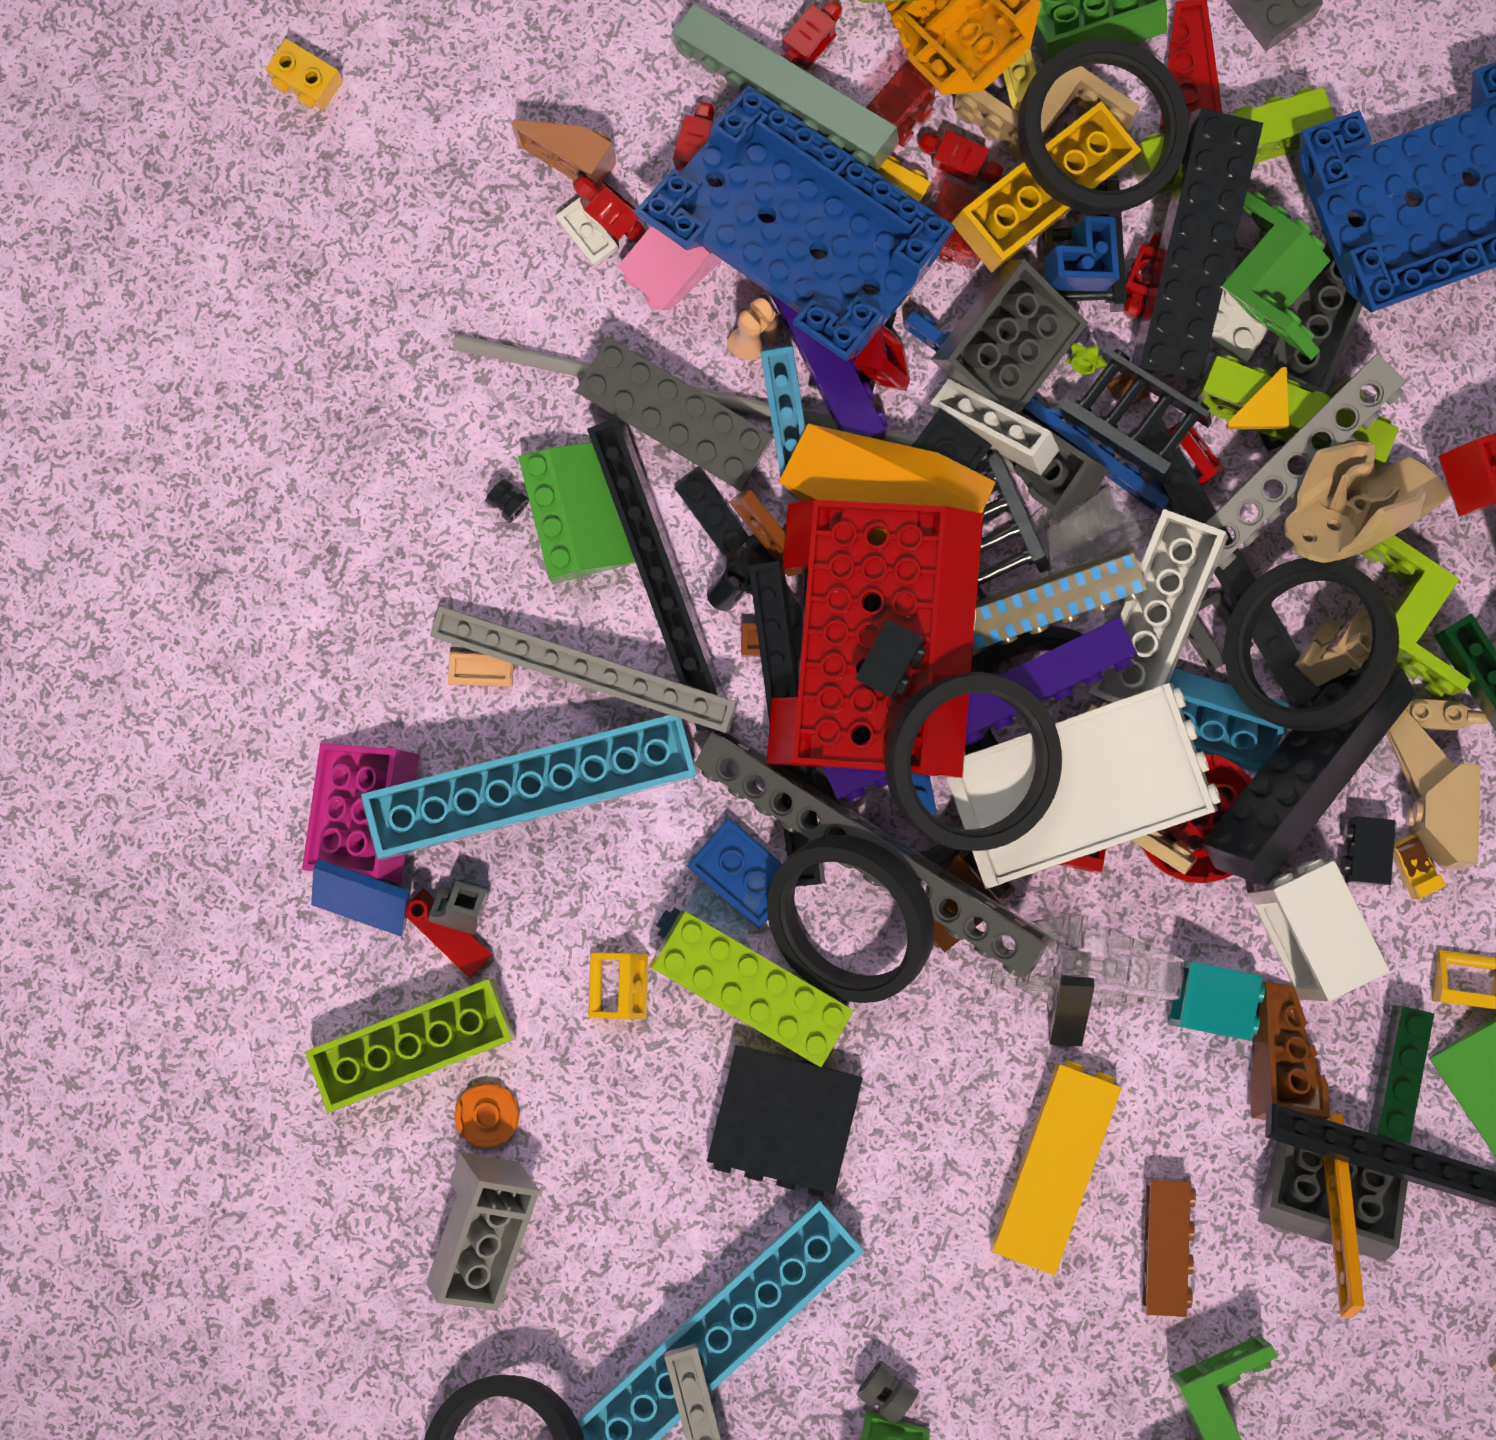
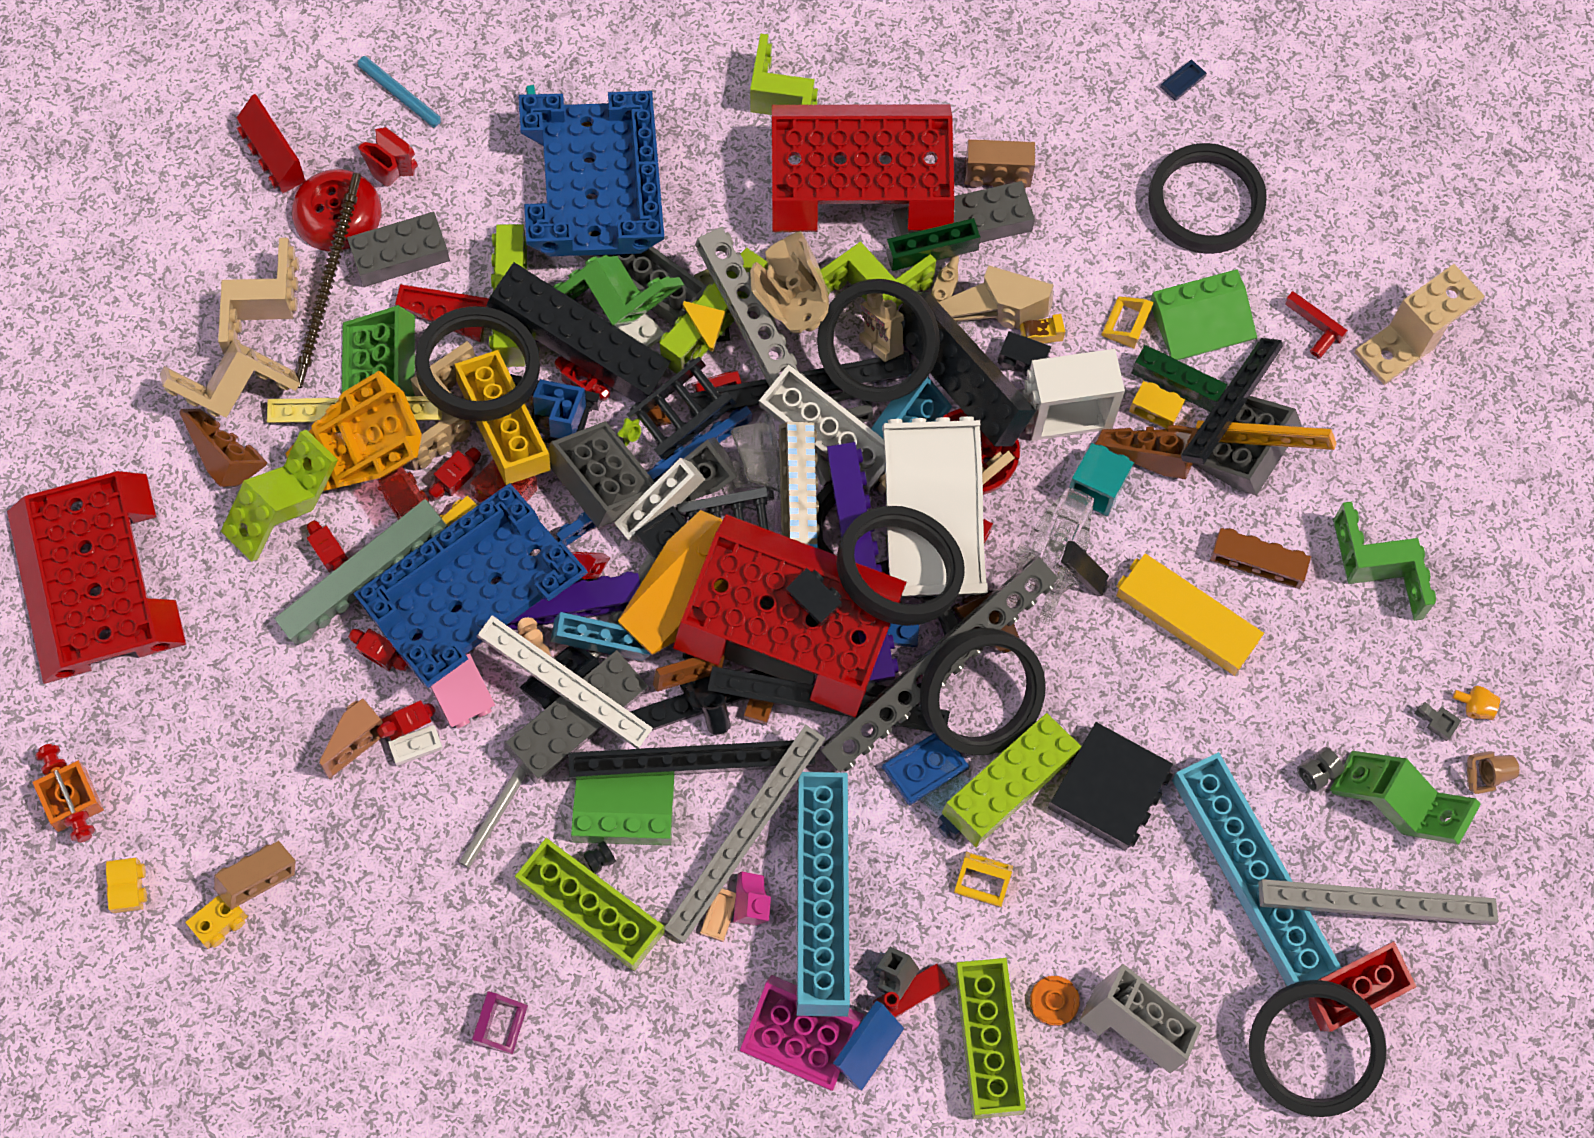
camera: 85 degrees left, 15 degrees down
(272, 428) = (485, 1021): none -> magenta tile
(364, 96) = (254, 874): none -> medium nougat brick
(442, 506) = (590, 904): none -> lime brick
(505, 702) = (751, 901): none -> dark pink arch
(701, 381) = (564, 682): none -> white plate
(722, 377) = (573, 658): none -> black tile
(1352, 1052) = (1156, 405): none -> yellow brick

